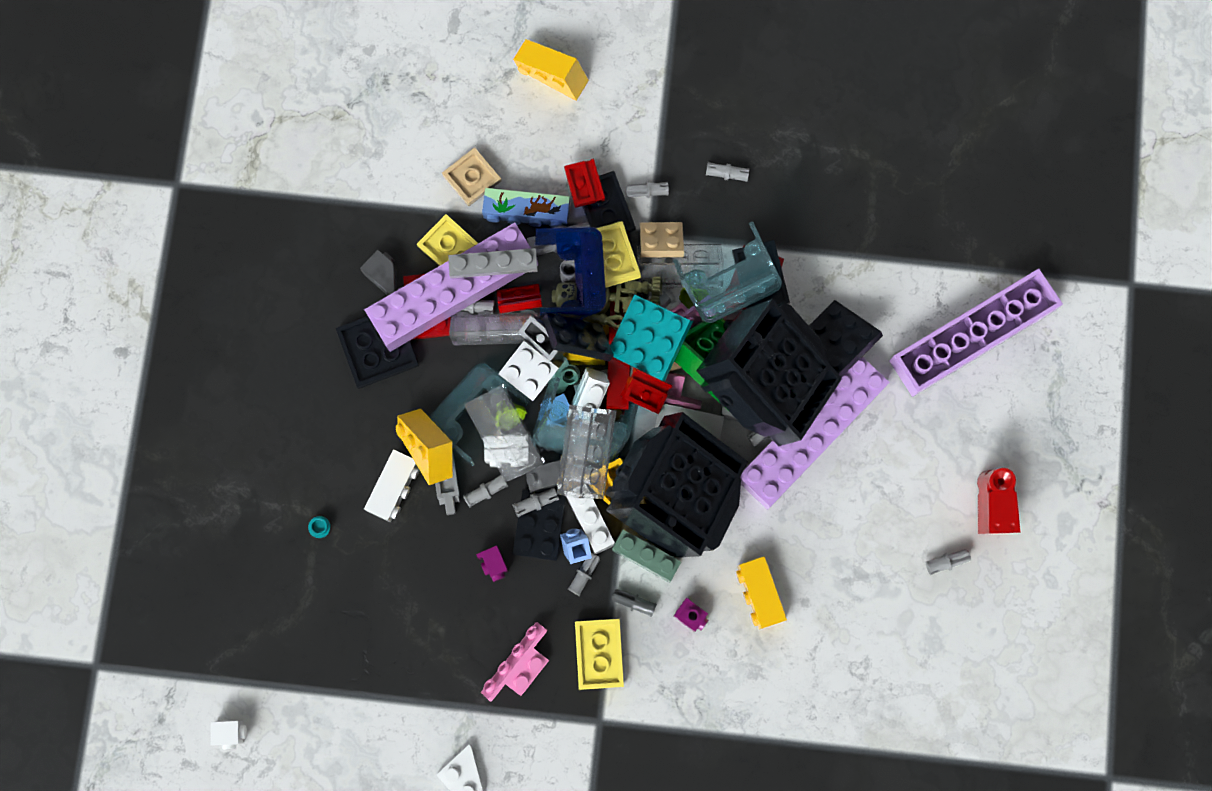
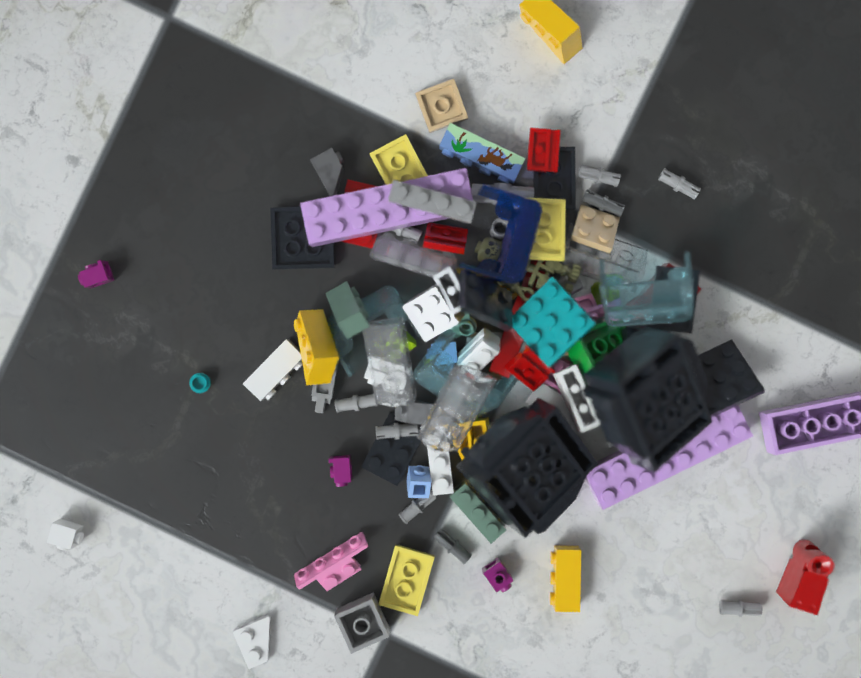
camera: 10 degrees right, 10 degrees up
(179, 455) = (96, 275): none -> magenta brick
(446, 396) = (348, 309): none -> sand green brick
(568, 713) = (362, 623): none -> light grey brick
(661, 214) = (603, 203): none -> dark grey pin
(701, 403) = (580, 408): none -> white brick

